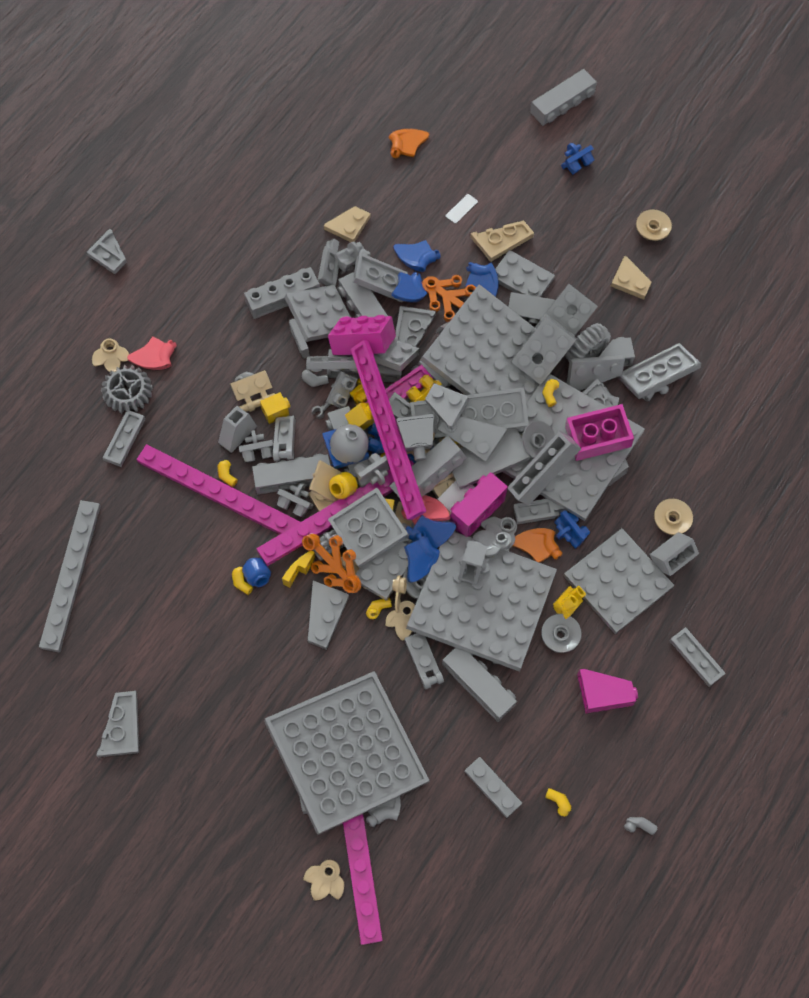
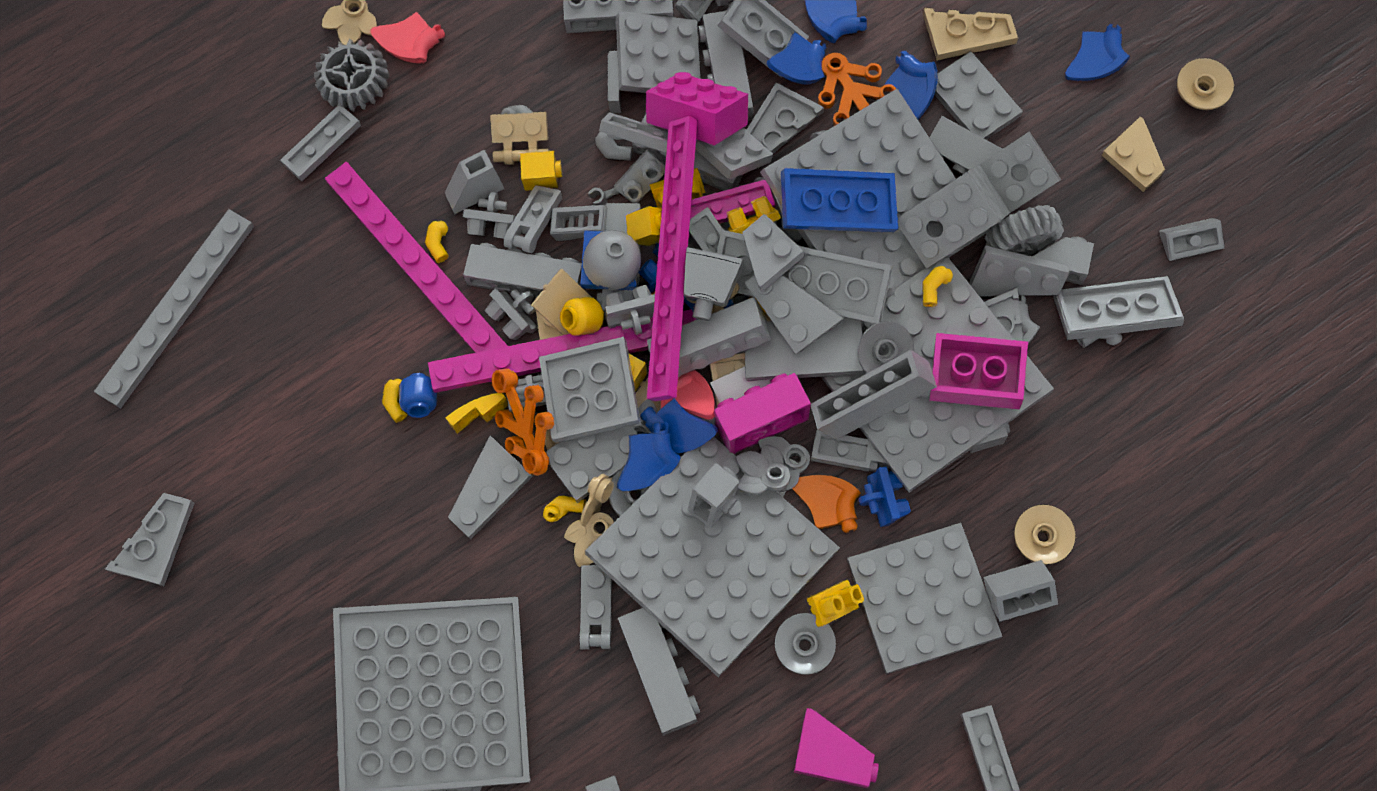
camera: 30 degrees right, 5 degrees up
(301, 429) = (561, 214): none -> light grey slope
(475, 360) = (839, 200): none -> blue plate
(584, 228) = (1098, 56): none -> blue arm
(683, 316) = (1192, 238): none -> light grey slope

